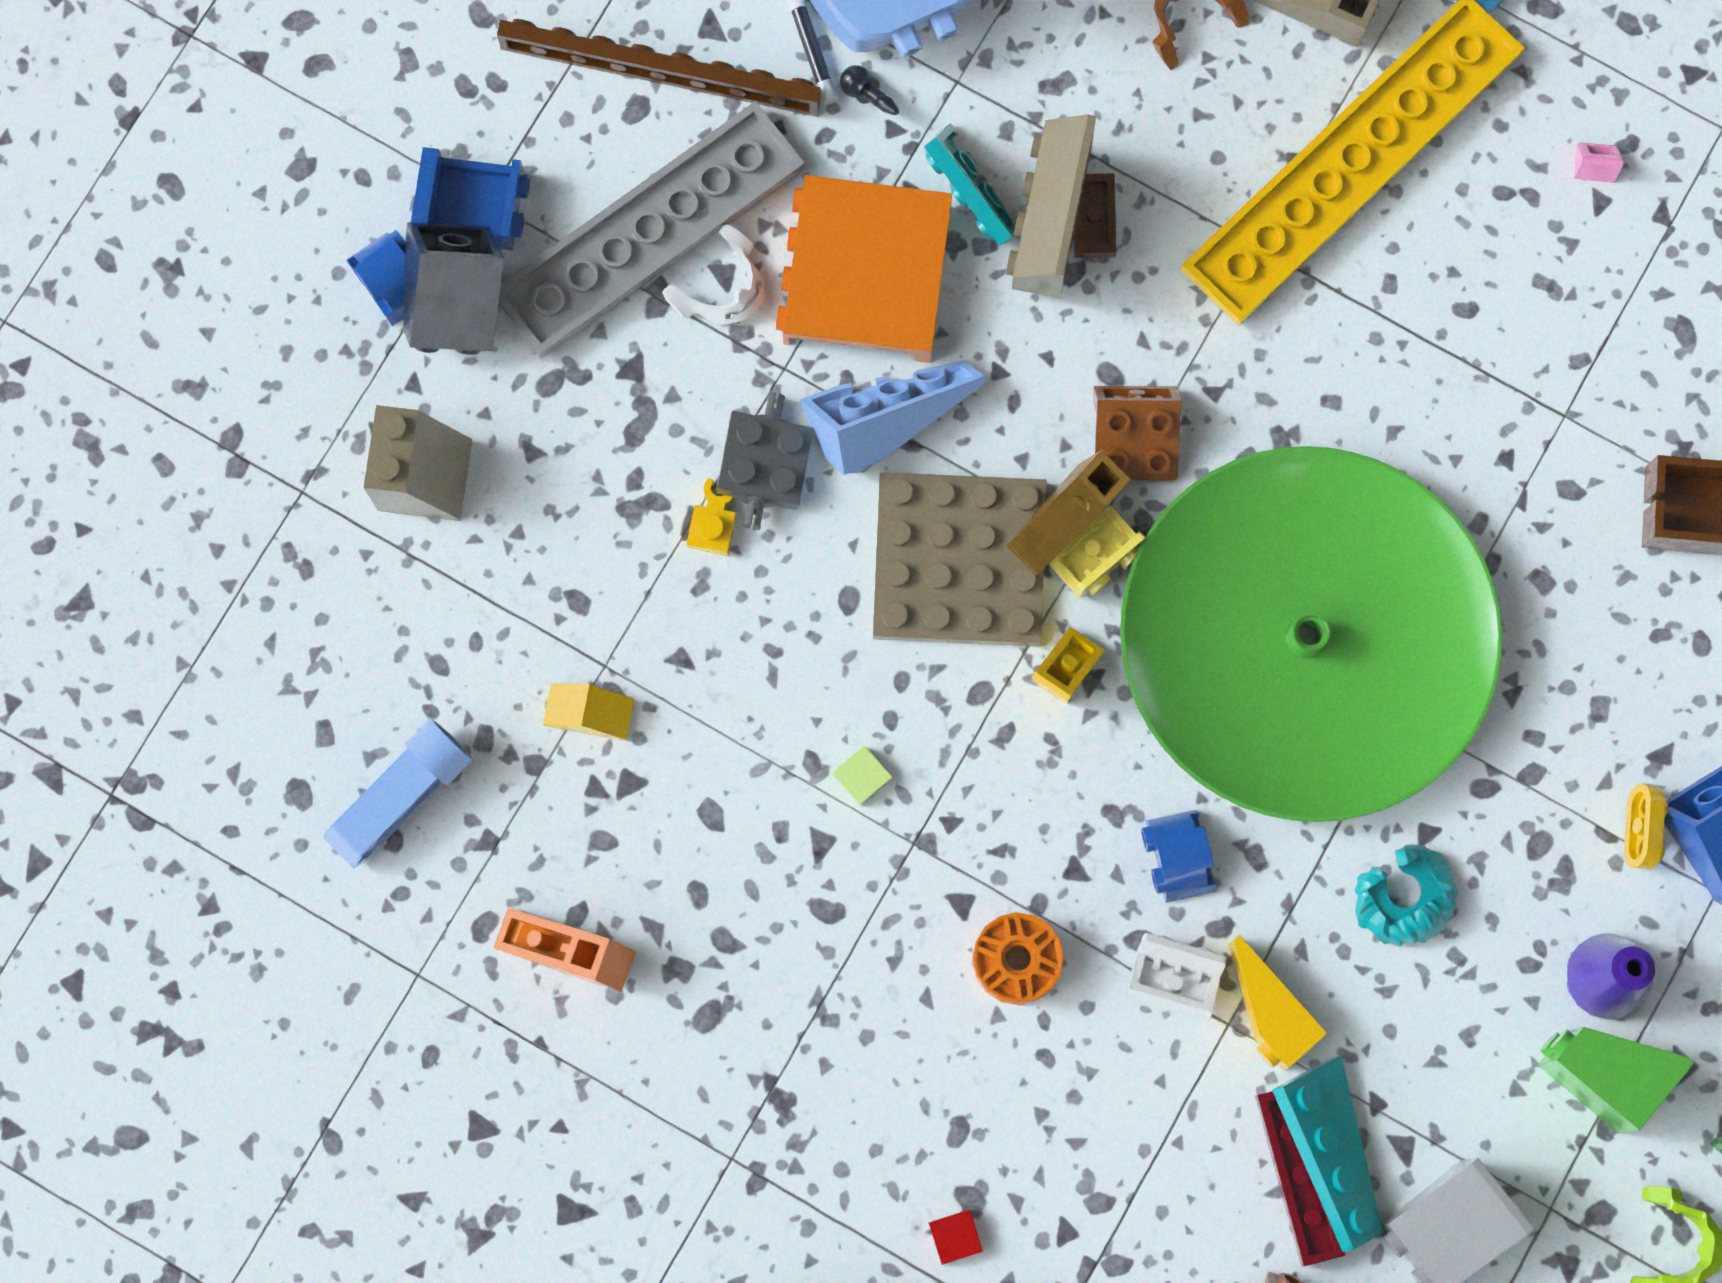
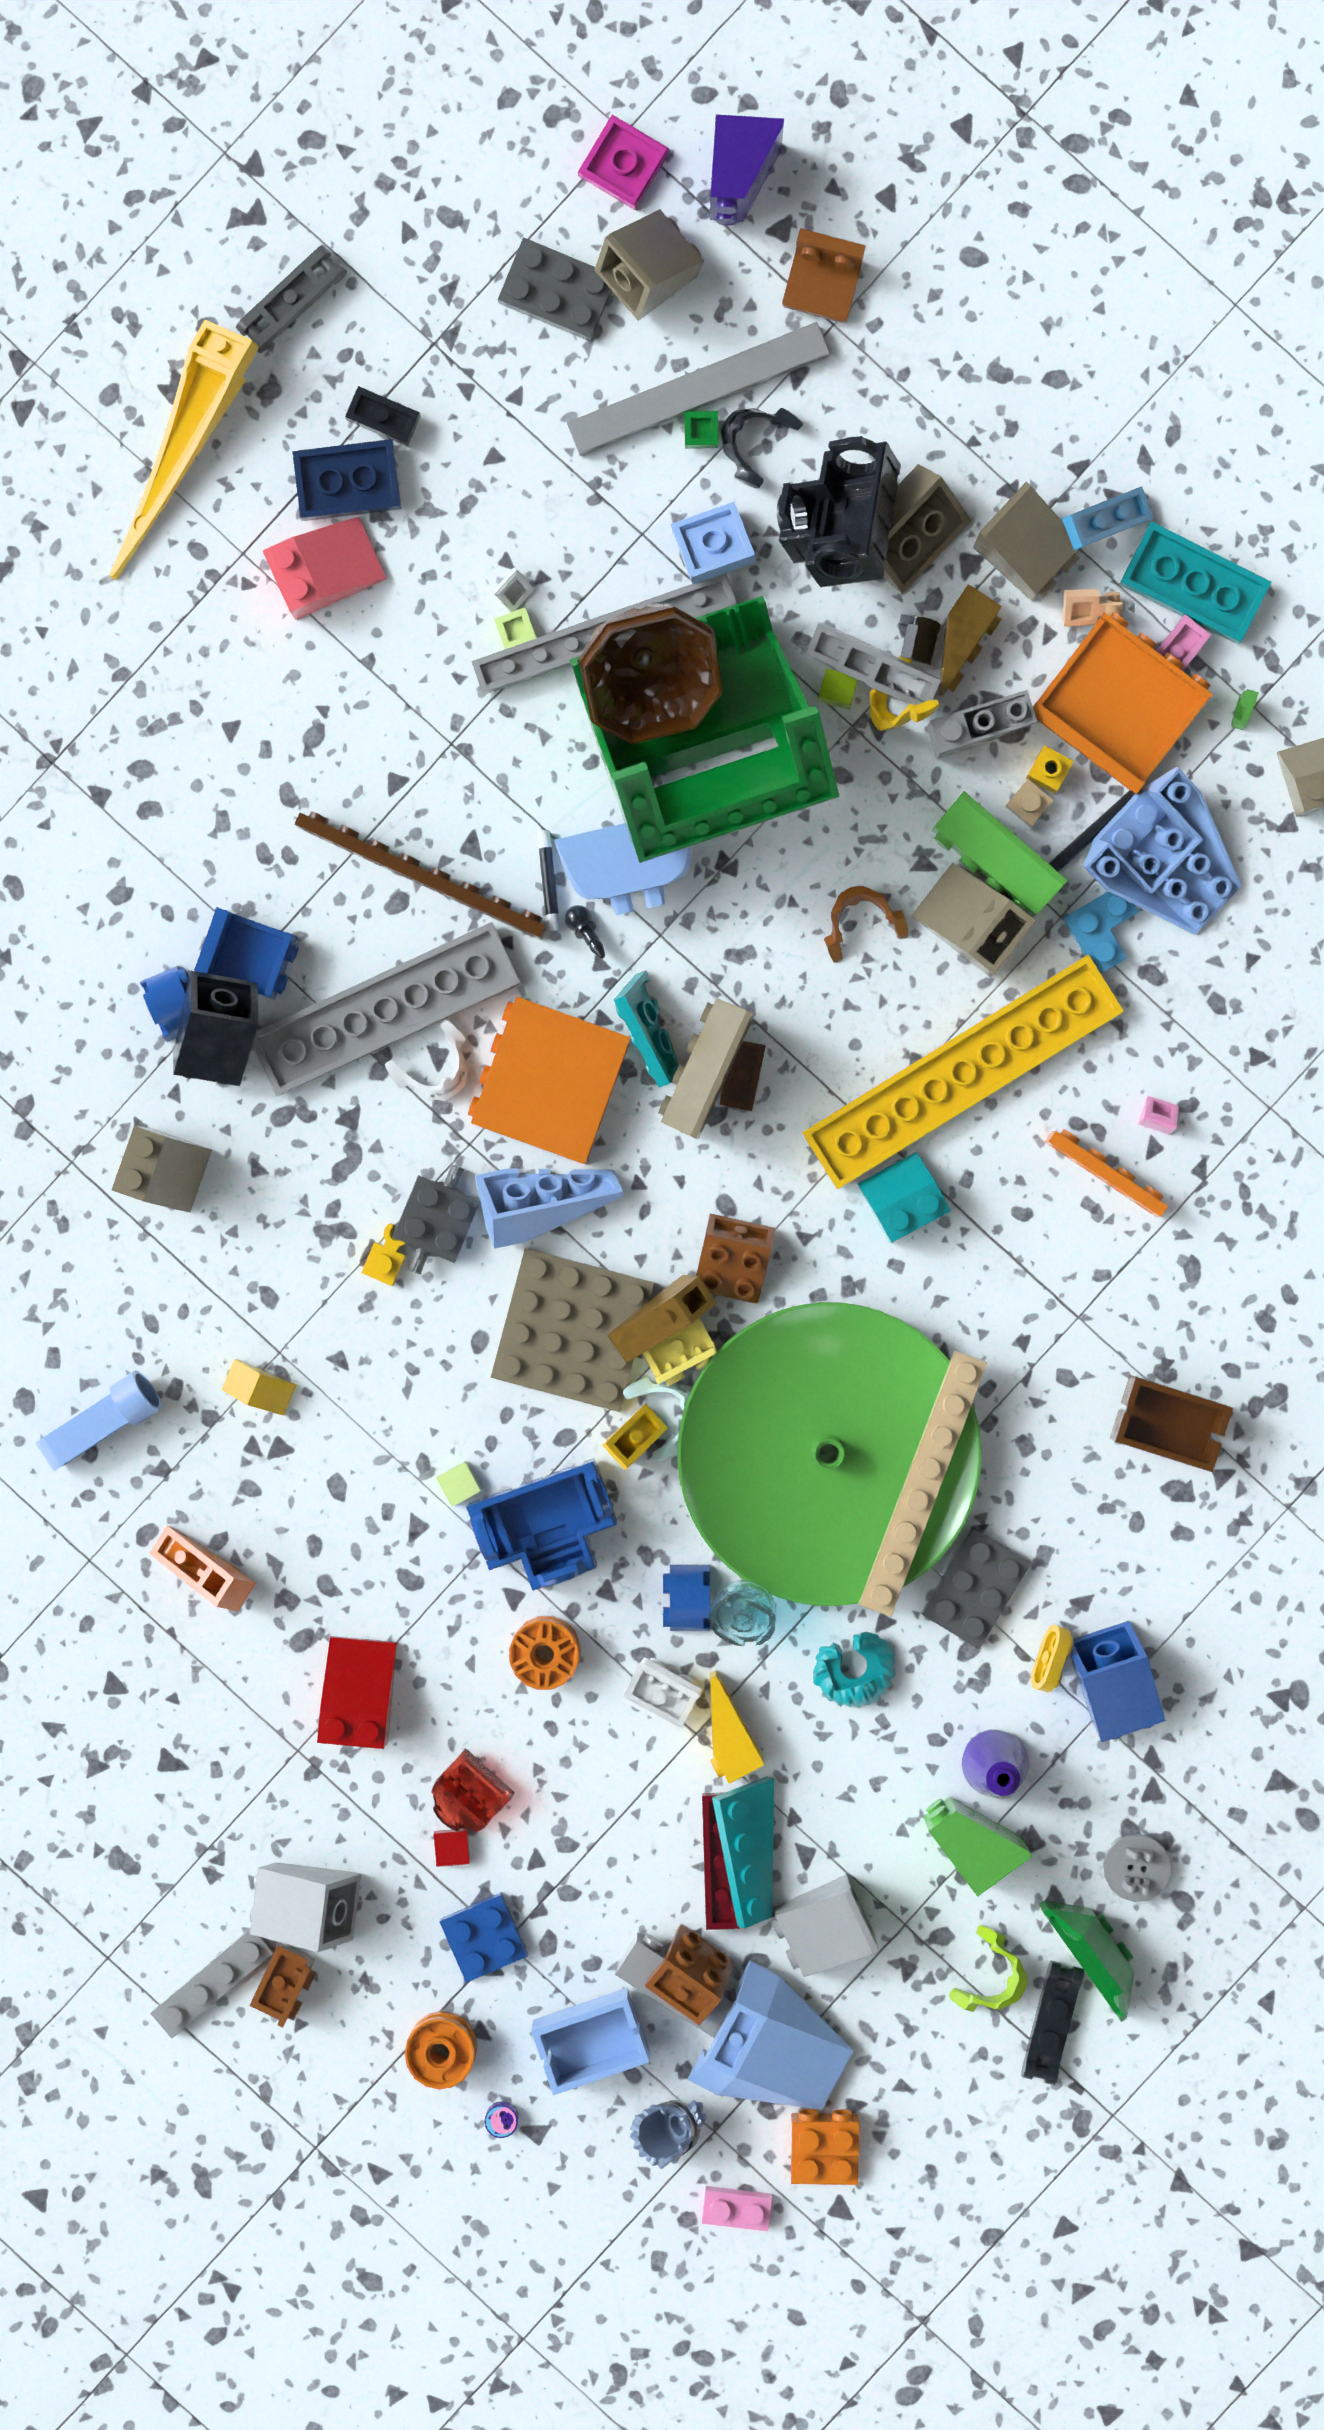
camera: 15 degrees right, 10 degrees up
(793, 1062) = (357, 1693): none -> red slope
(962, 1160) = (468, 1794): none -> clear red slope
(983, 794) = (545, 1524): none -> blue piece
(1063, 606) = (646, 1387): none -> light aqua helmet
(1255, 851) = (743, 1613): none -> clear light blue cylinder
(1323, 316) = (903, 1197): none -> teal slope
(1434, 641) = (922, 1483): none -> tan plate
(1528, 764) = (975, 1588): none -> dark grey plate
(1565, 241) = (1118, 1179): none -> orange plate

